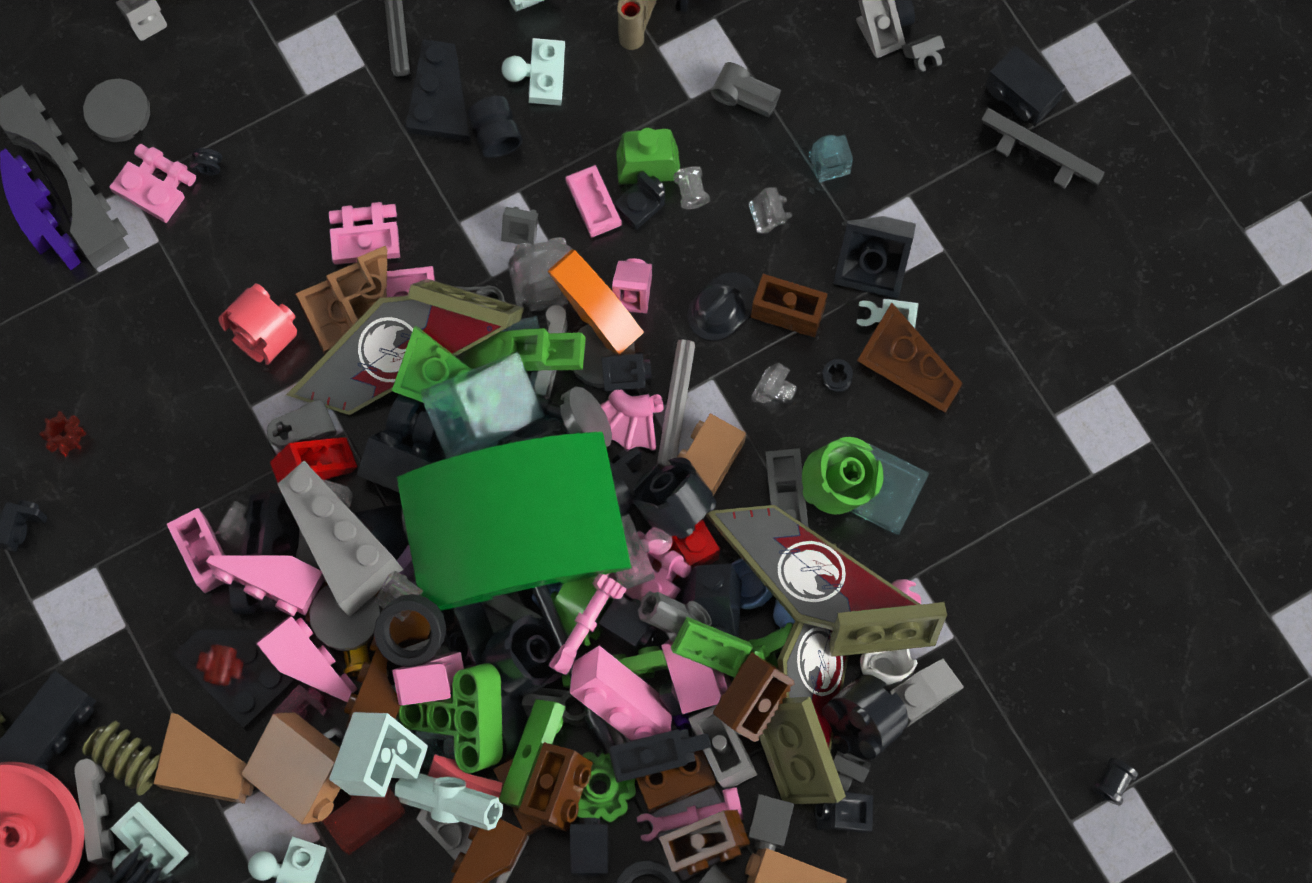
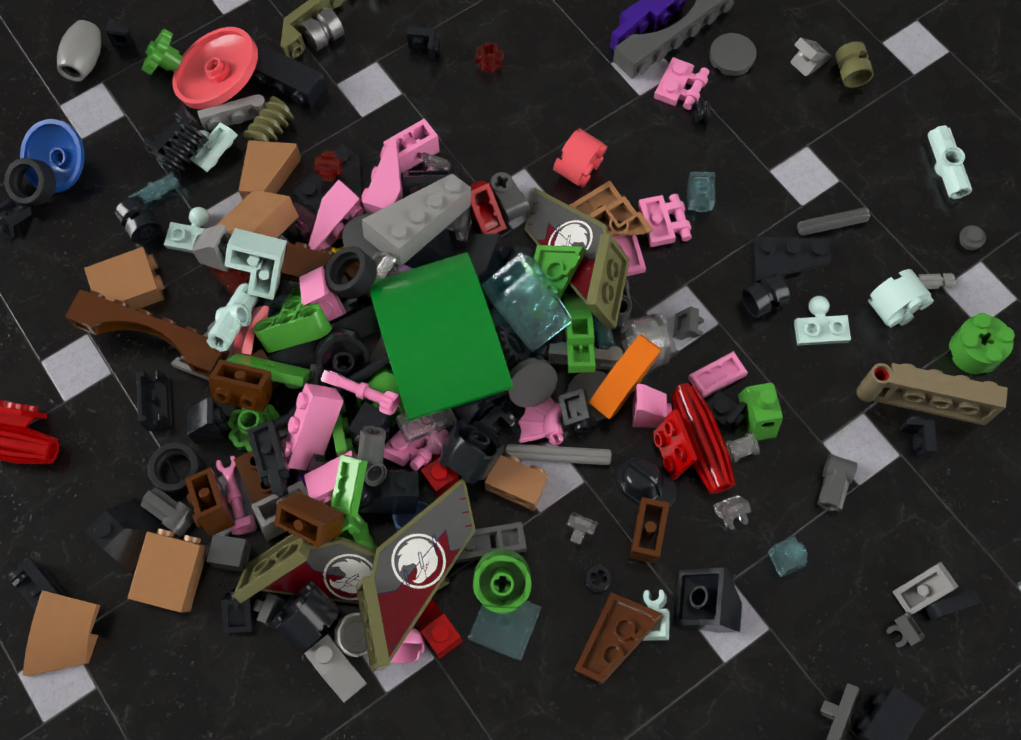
camera: 85 degrees right, 5 degrees down
(333, 191) = (701, 191): none -> clear light blue brick
(343, 820) = (212, 247): none -> light grey slope
(679, 239) = (693, 437): none -> red plate
(894, 560) = (437, 630): none -> red arch

